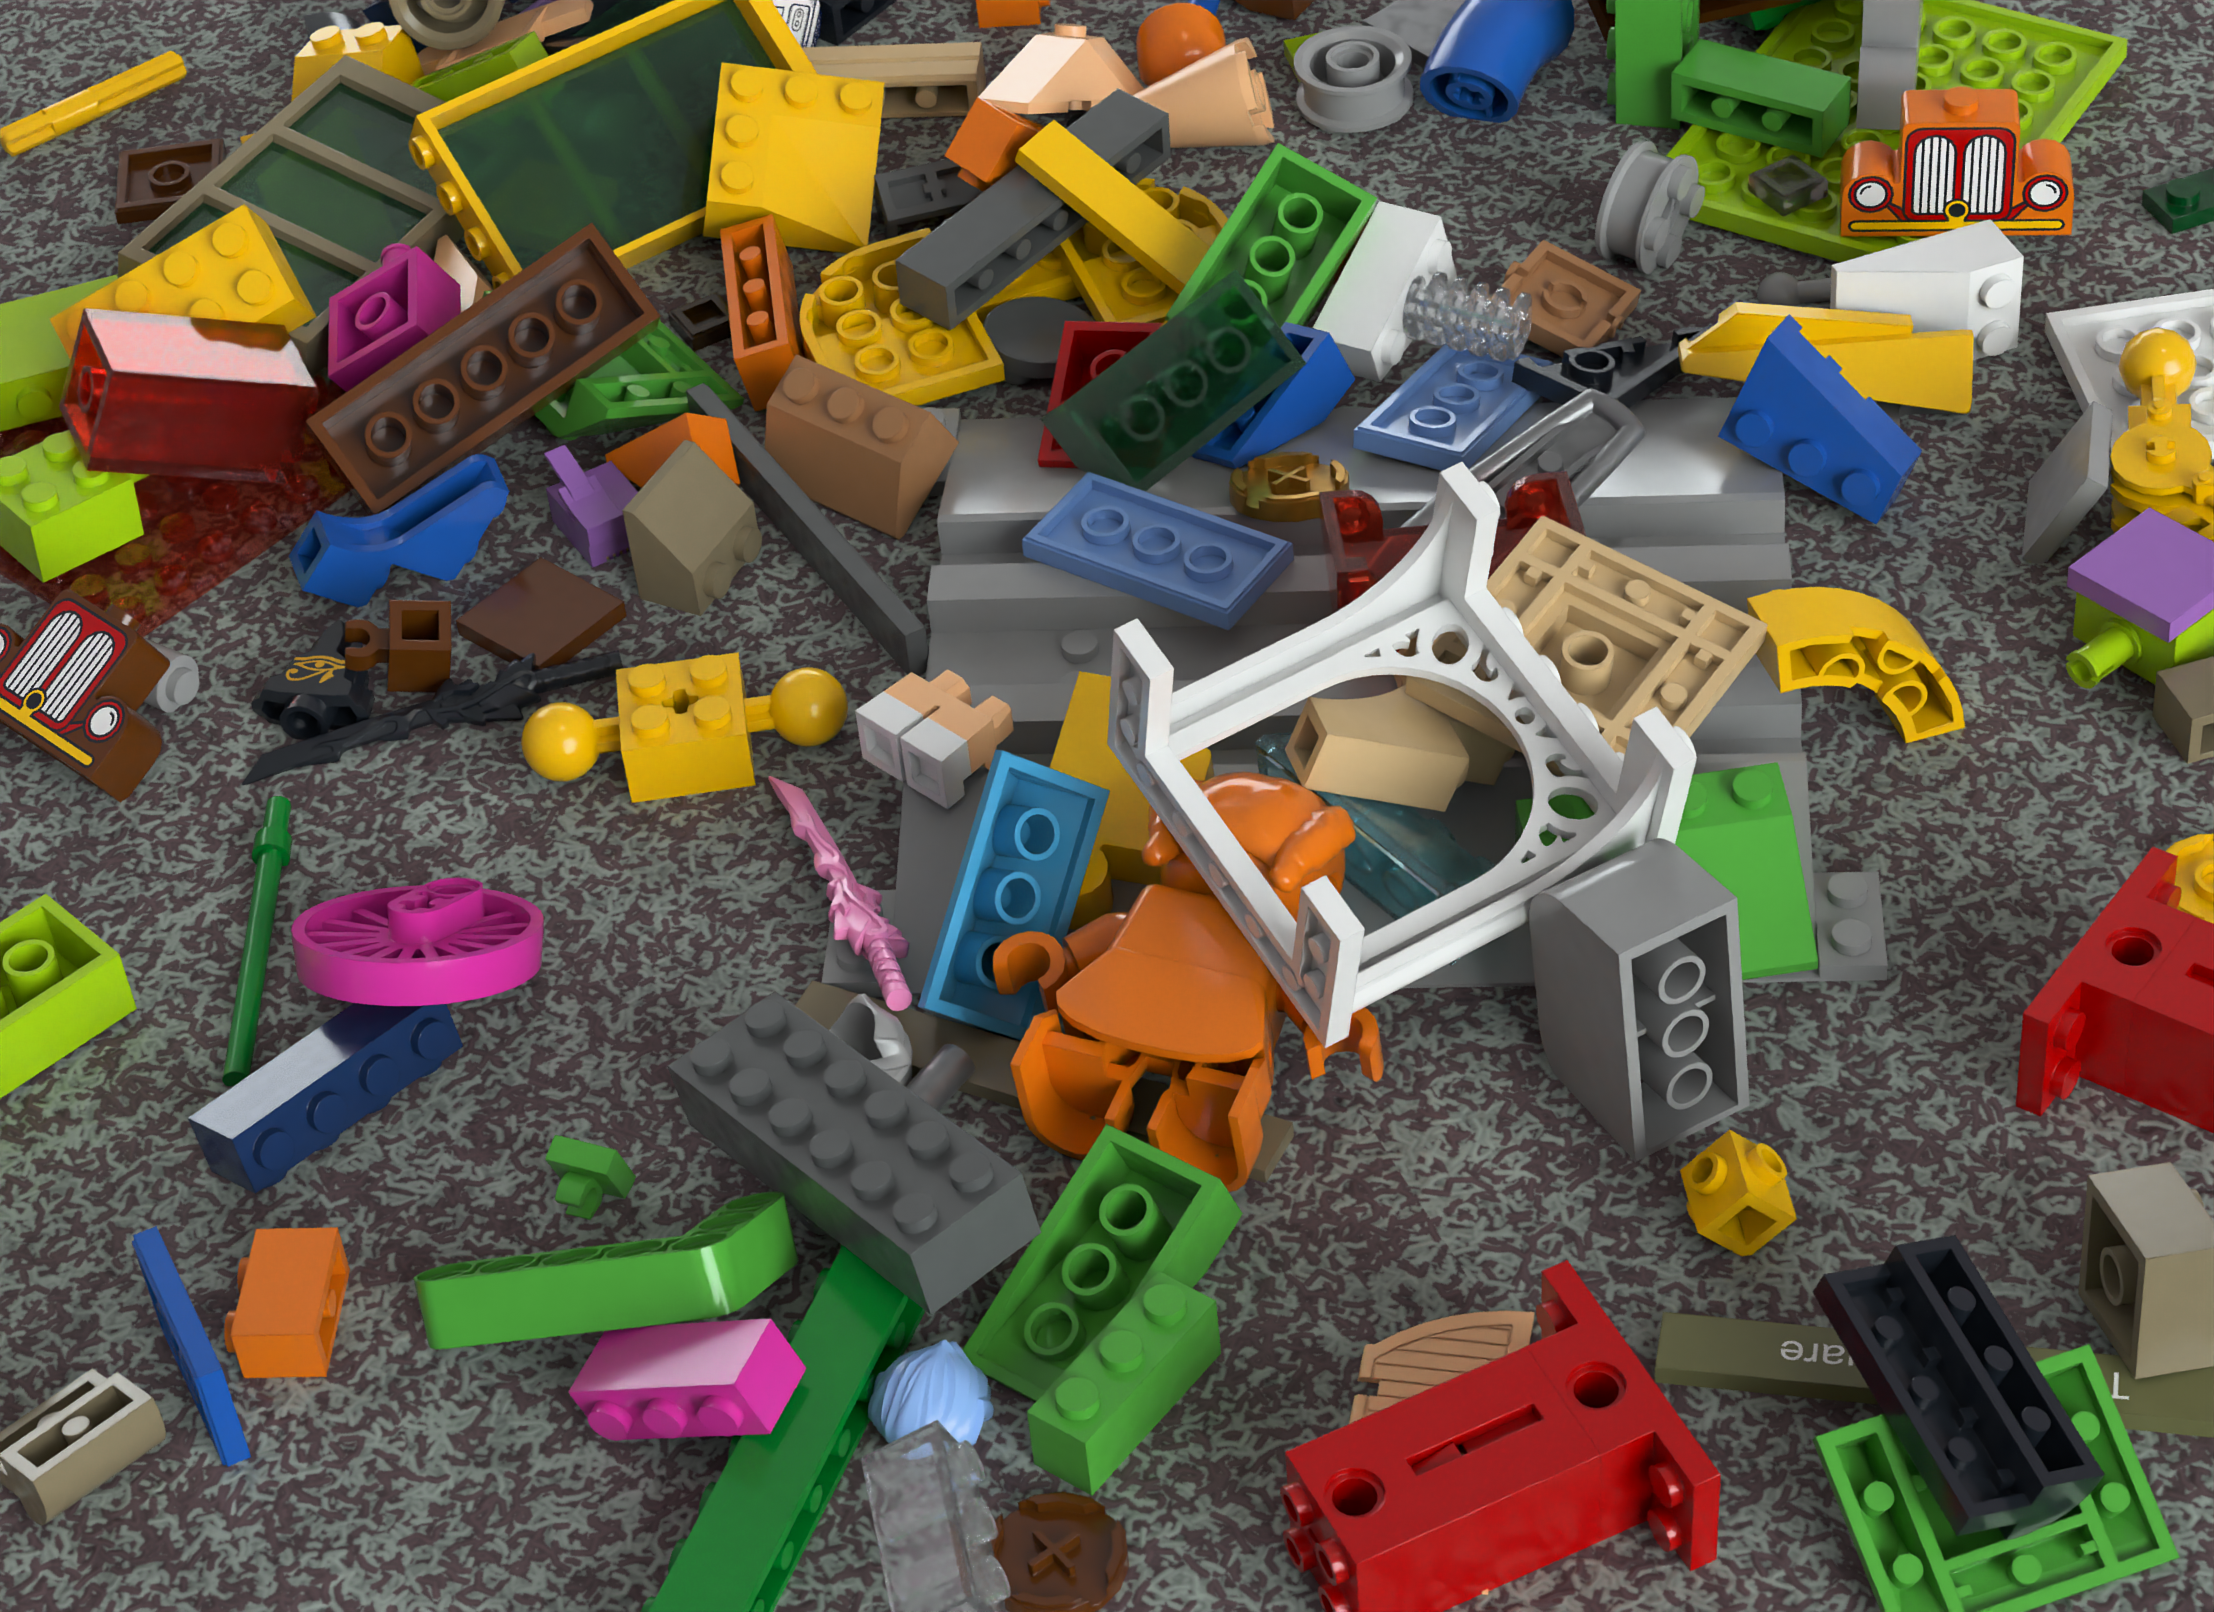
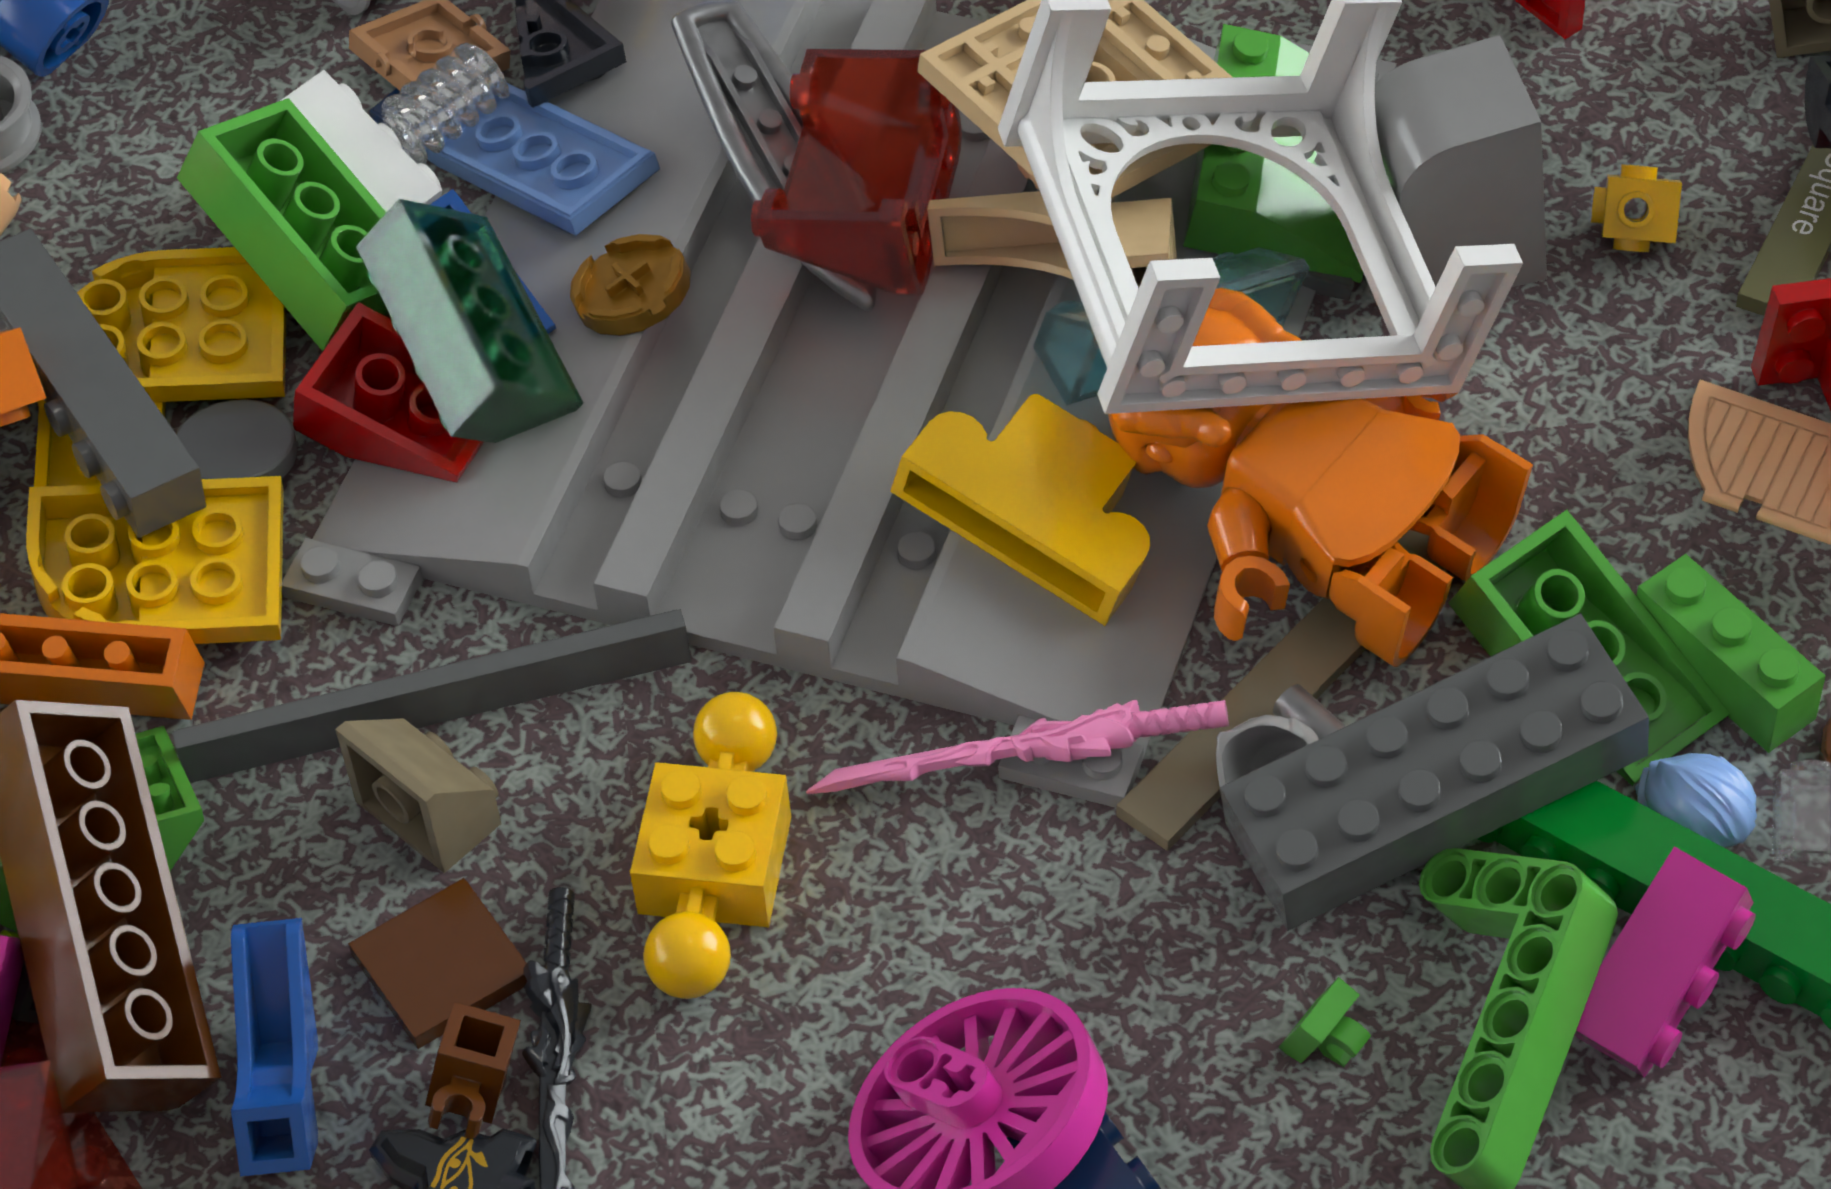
camera: 75 degrees left, 10 degrees up
(590, 506) = (307, 873): medium lavender piece -> none
(646, 454) = (281, 783): orange slope -> none
(855, 446) = (358, 615): medium nougat slope -> none
(932, 733) = (890, 609): hips -> none
(1014, 878) = (1143, 592): dark azure slope -> none
(1113, 205) = (150, 305): yellow tile -> none
(1158, 550) = (674, 398): medium blue tile -> none

